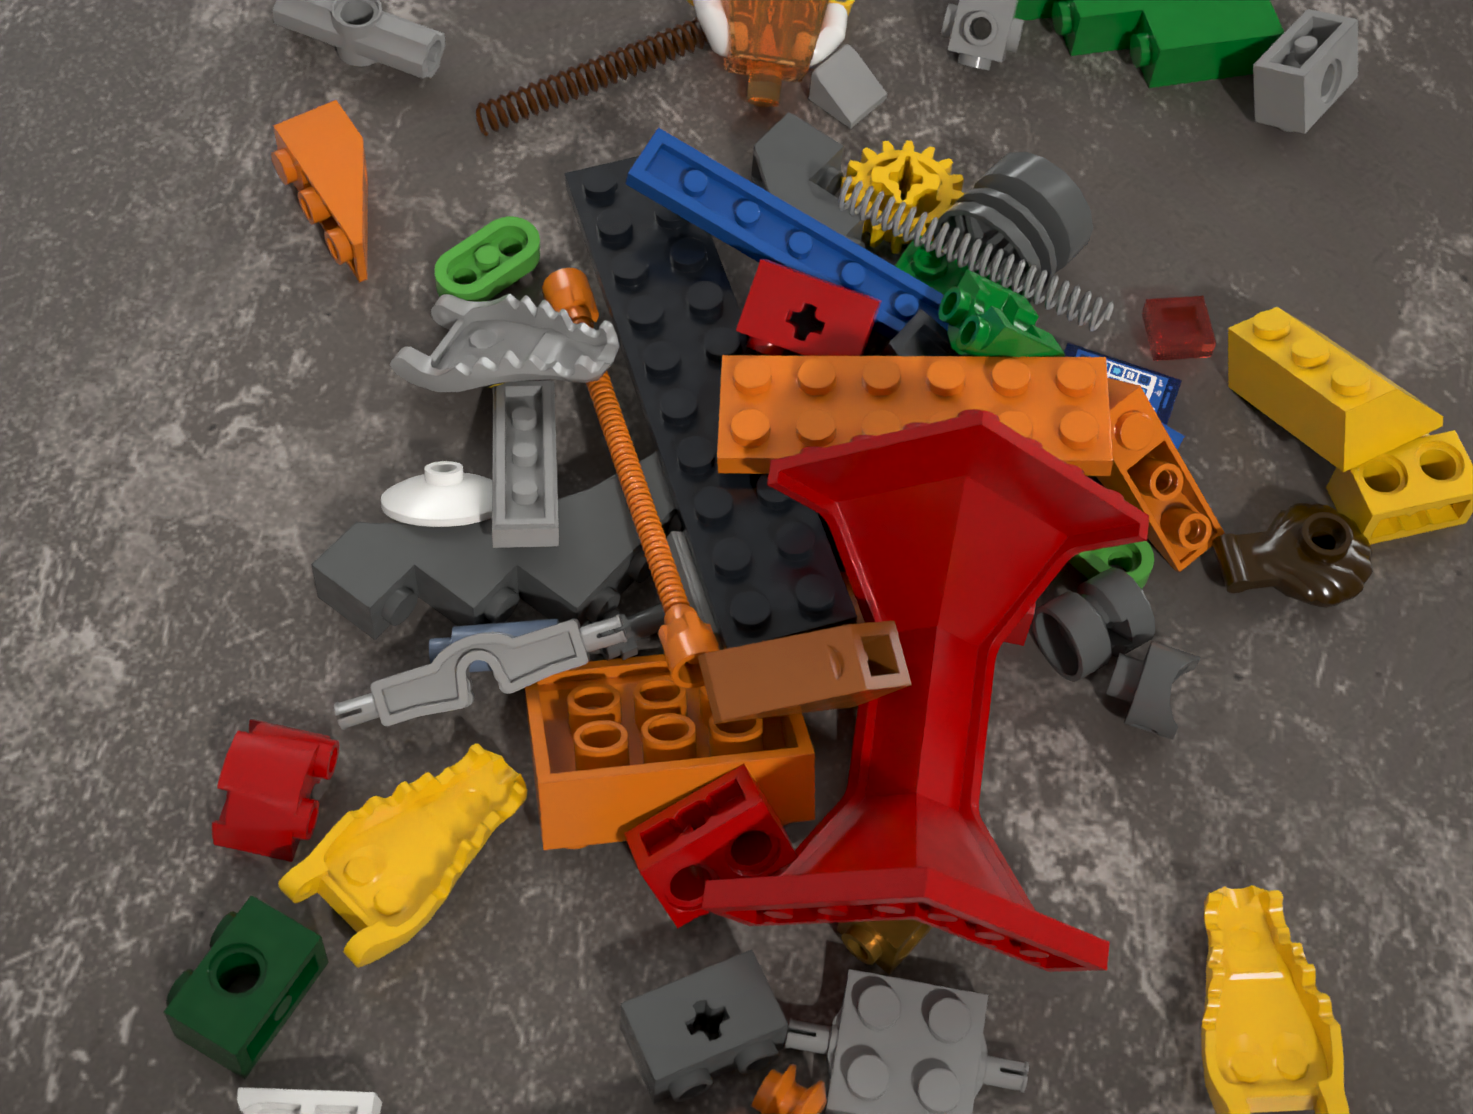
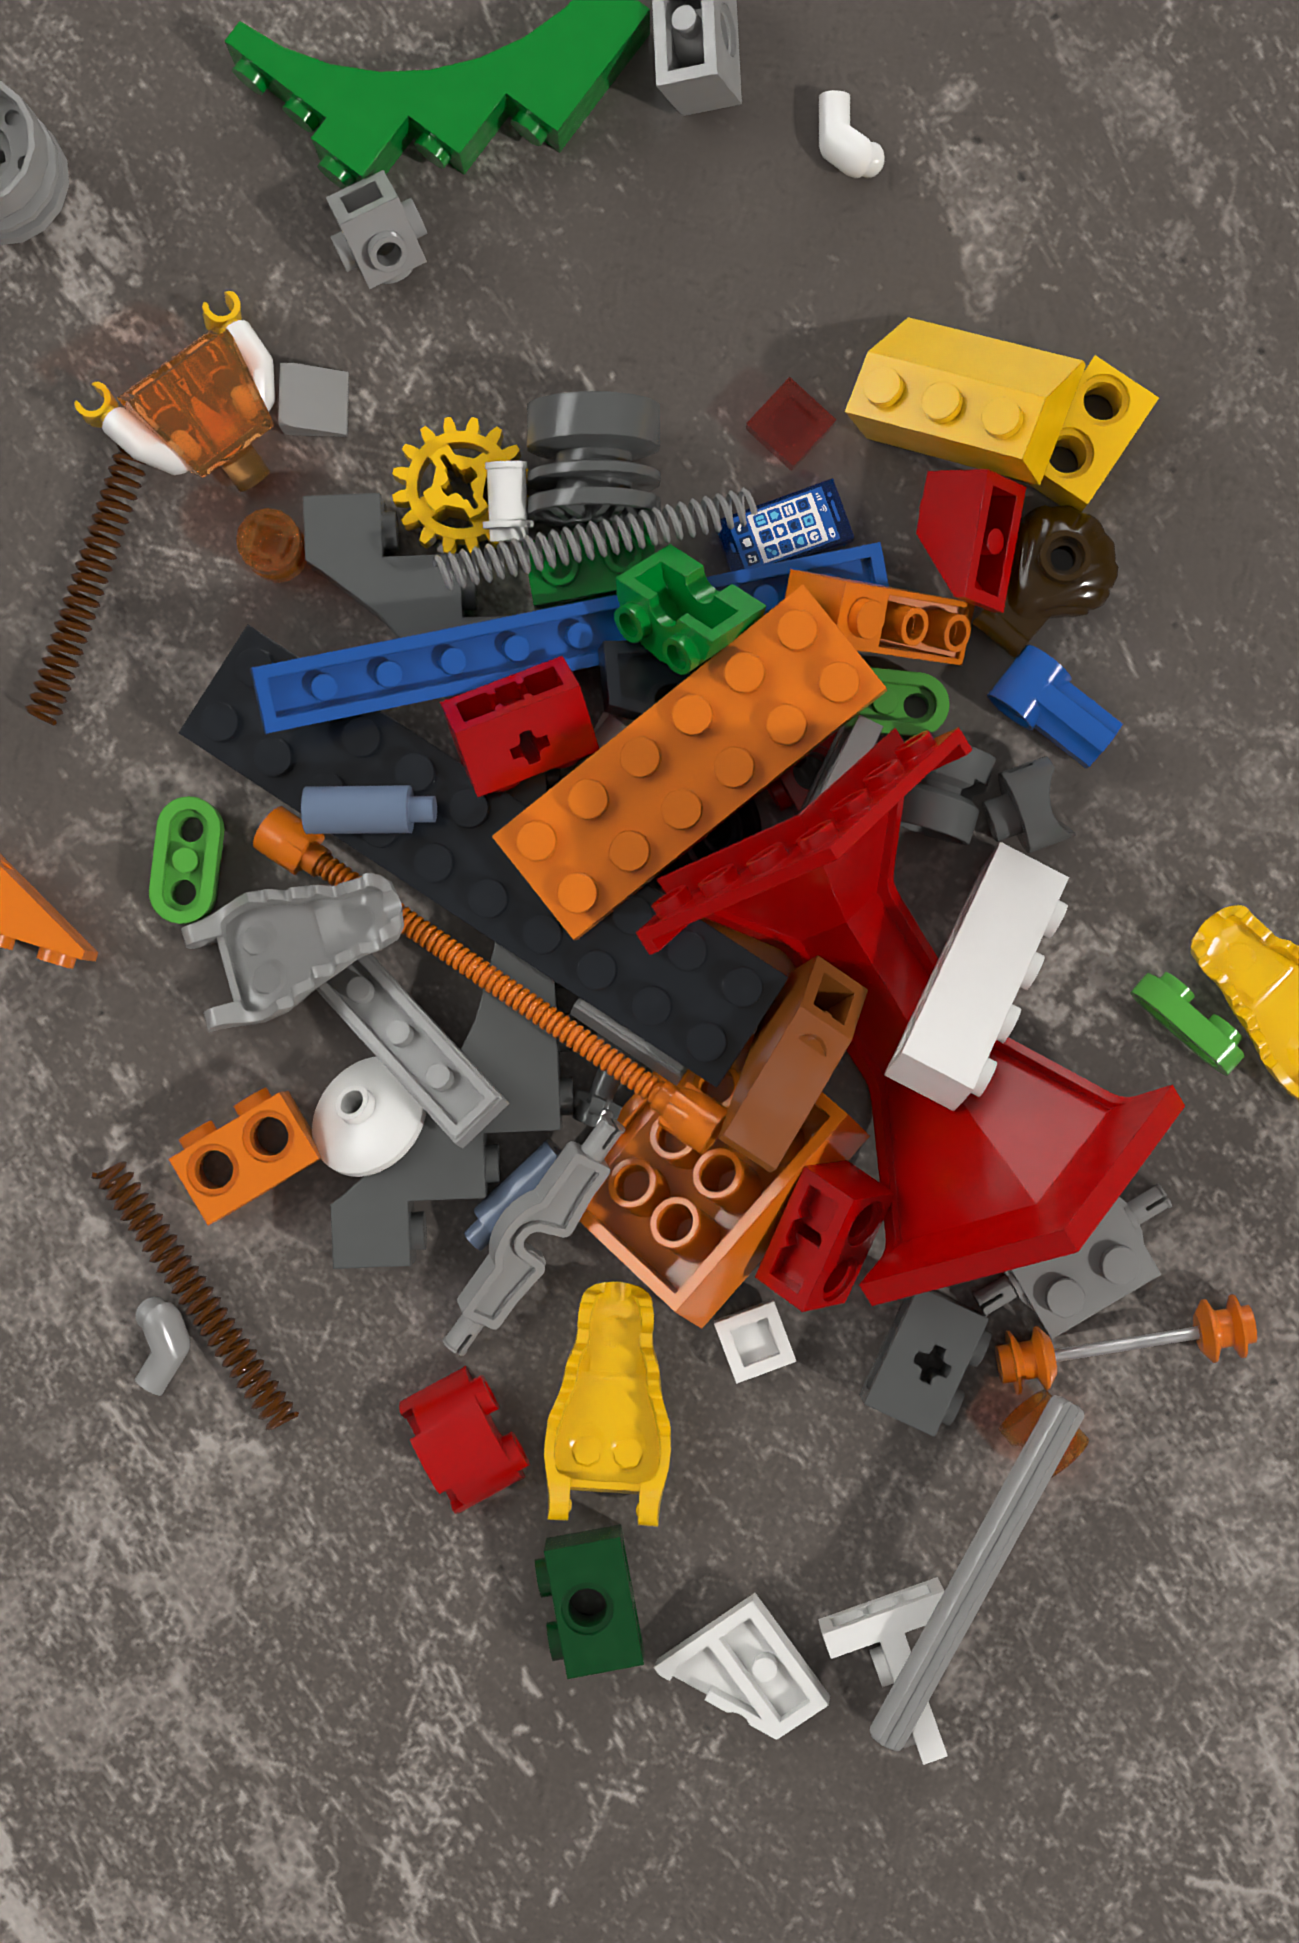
camera: 30 degrees left, 30 degrees up
(138, 537) = (167, 1341): none -> light grey arm
(176, 575) = (199, 1296): none -> reddish brown piece
(327, 472) = (253, 1166): none -> orange brick
(576, 900) = (754, 1341): none -> white plate
(646, 281) = (364, 809): none -> sand blue cylinder
(735, 129) = (278, 557): none -> clear orange wheel
(934, 198) = (507, 501): none -> white pin
(1006, 751) = (978, 978): none -> white brick
(1154, 929) = (1170, 1005): none -> bright green plate
(1230, 630) = (1040, 696): none -> blue piece
(1267, 471) = (971, 532): none -> red slope
(1361, 208) = (841, 143): none -> white arm

